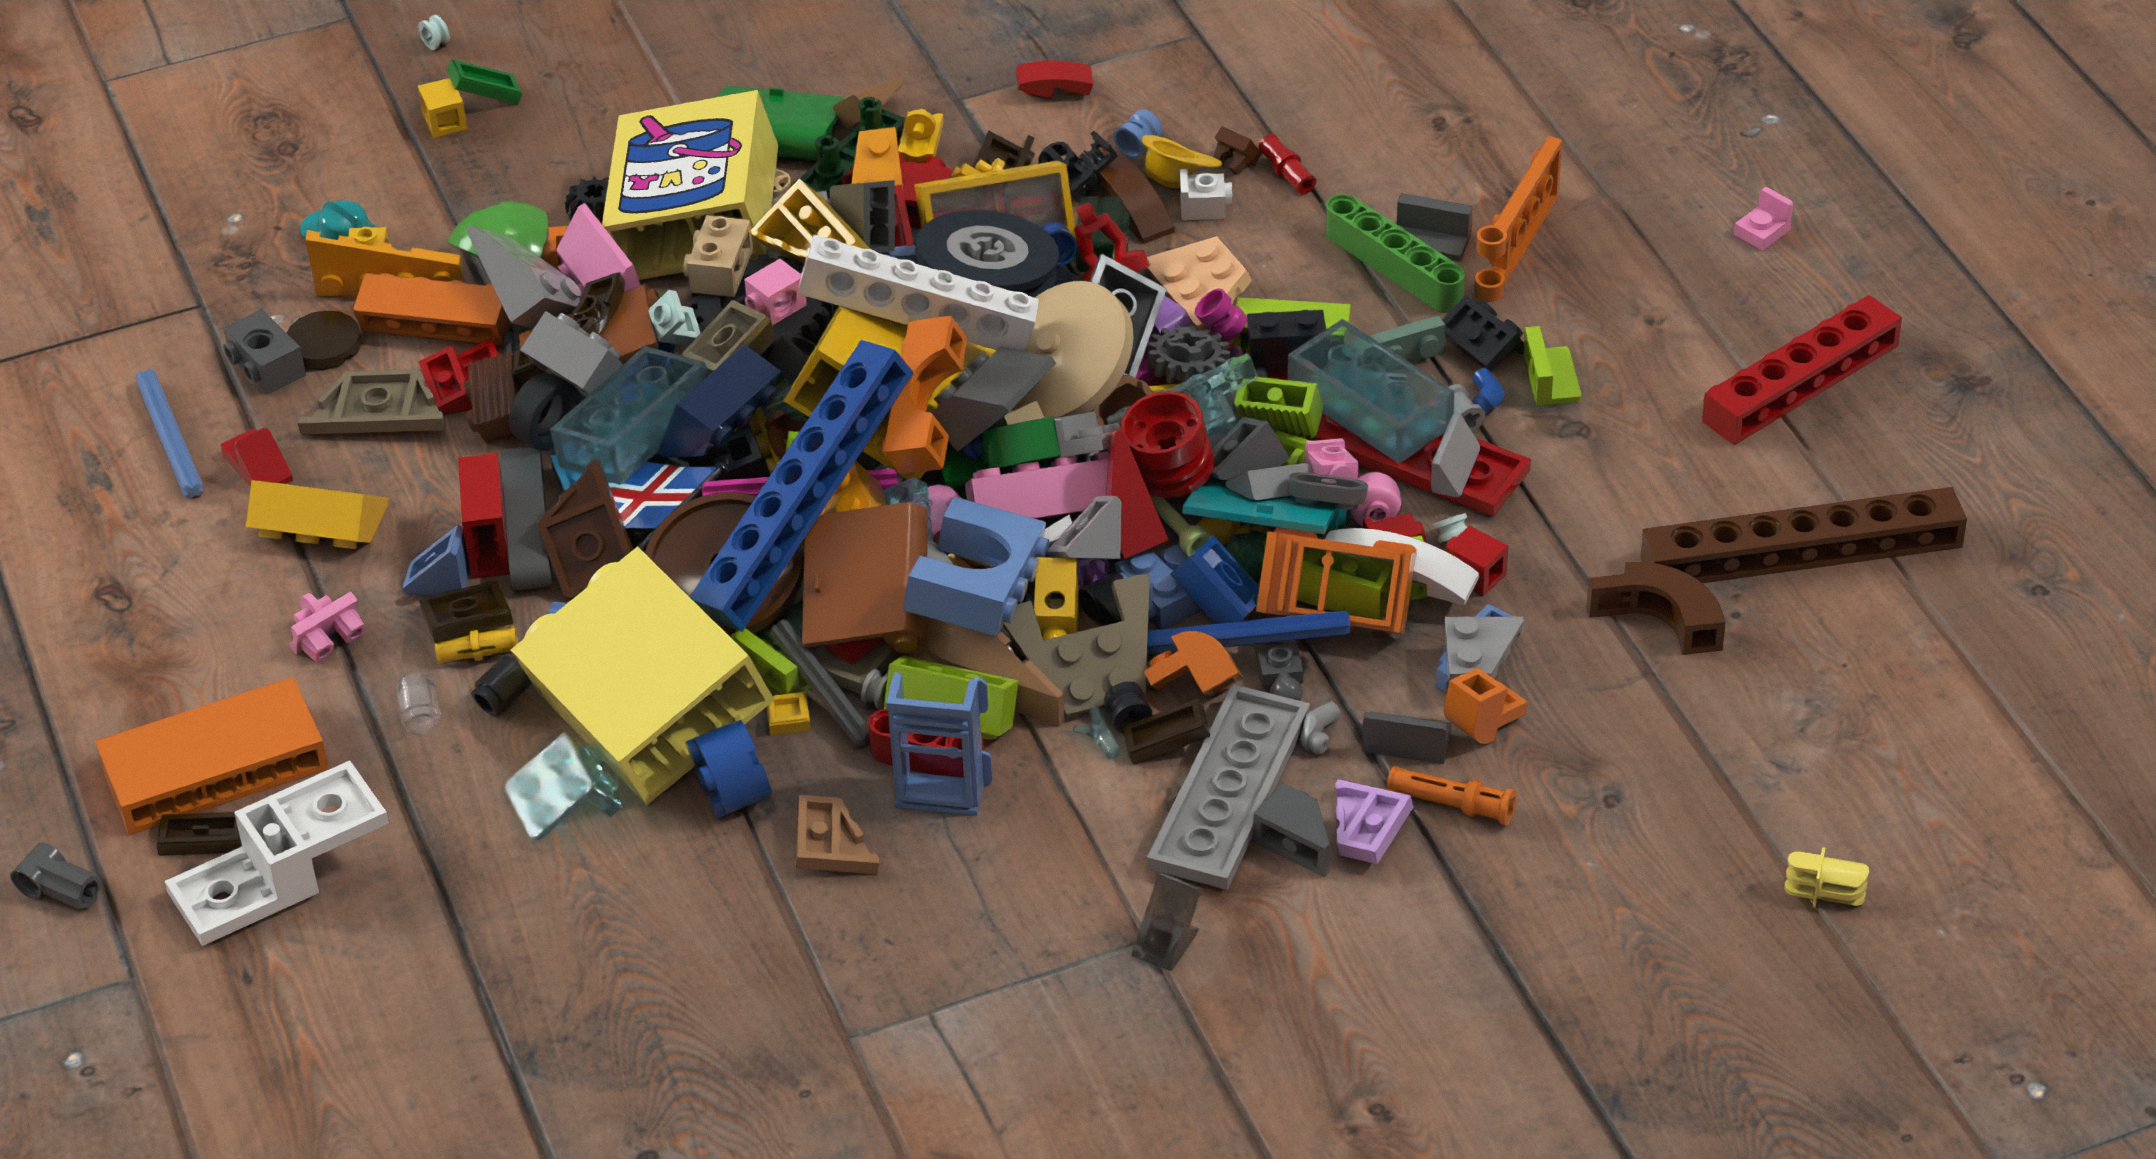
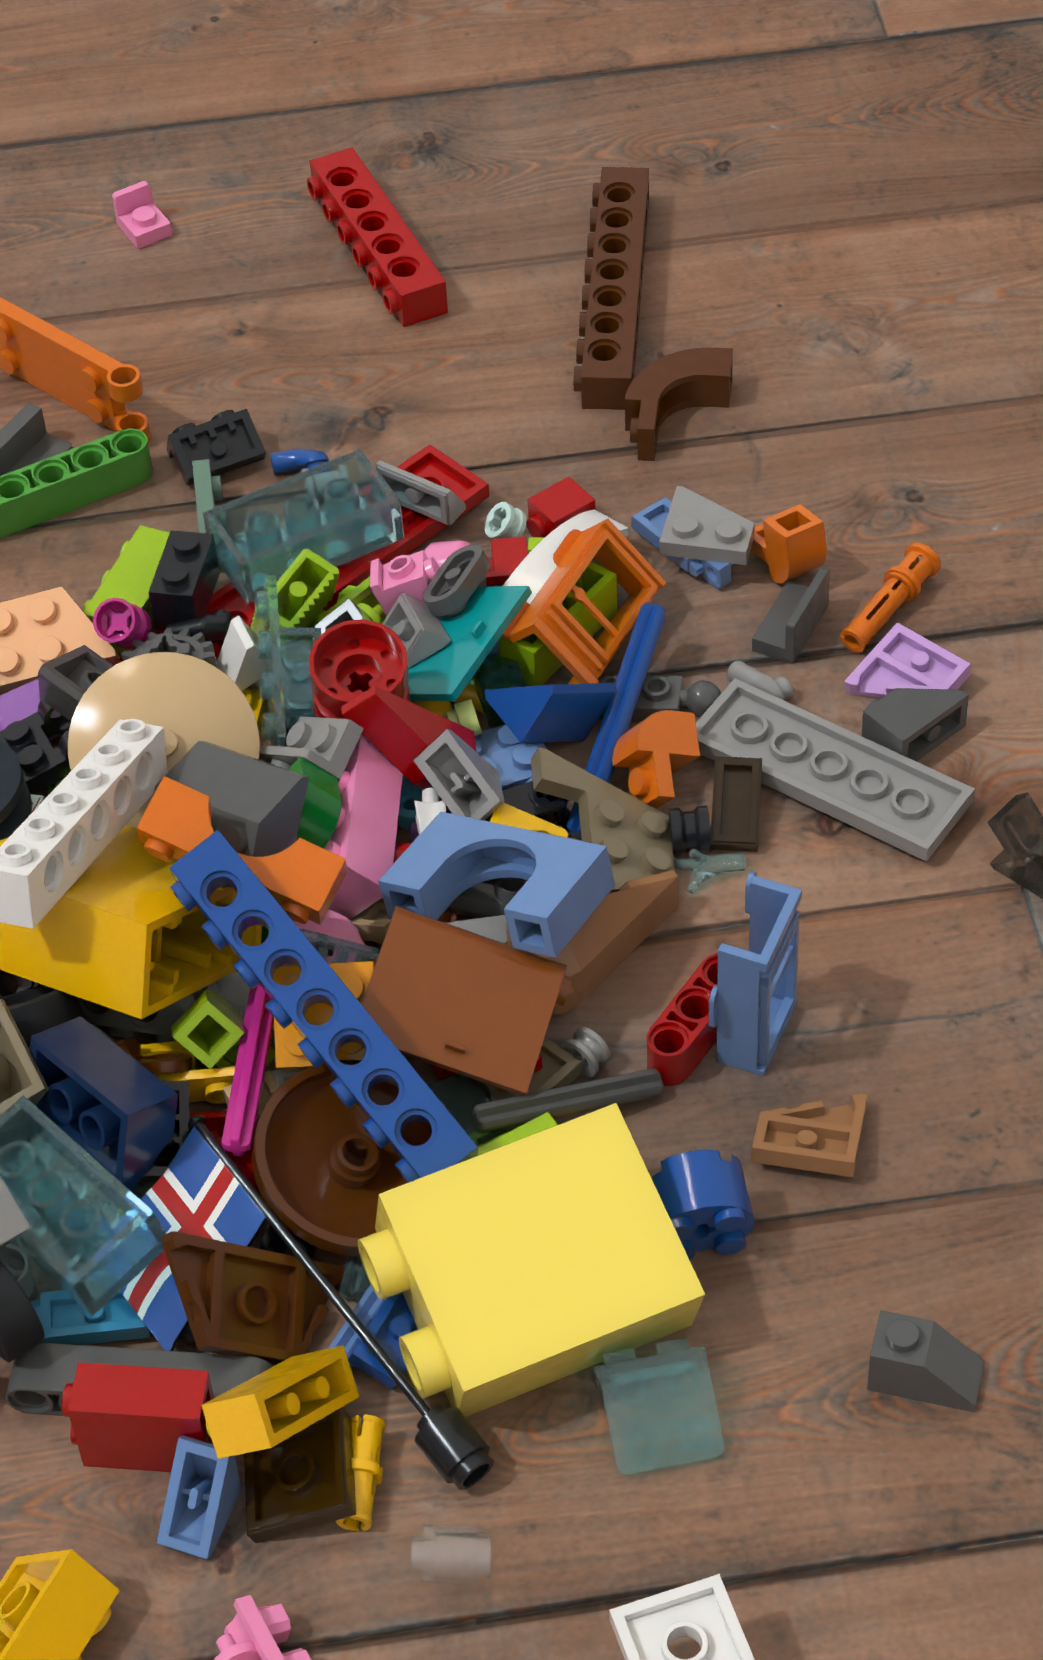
camera: 75 degrees left, 5 degrees up
(497, 569) = (280, 1402): none -> yellow brick
(623, 929) = (923, 1363): none -> dark grey slope
(949, 684) = (636, 975): lime brick -> none
(1549, 370) = (290, 413): lime panel -> none

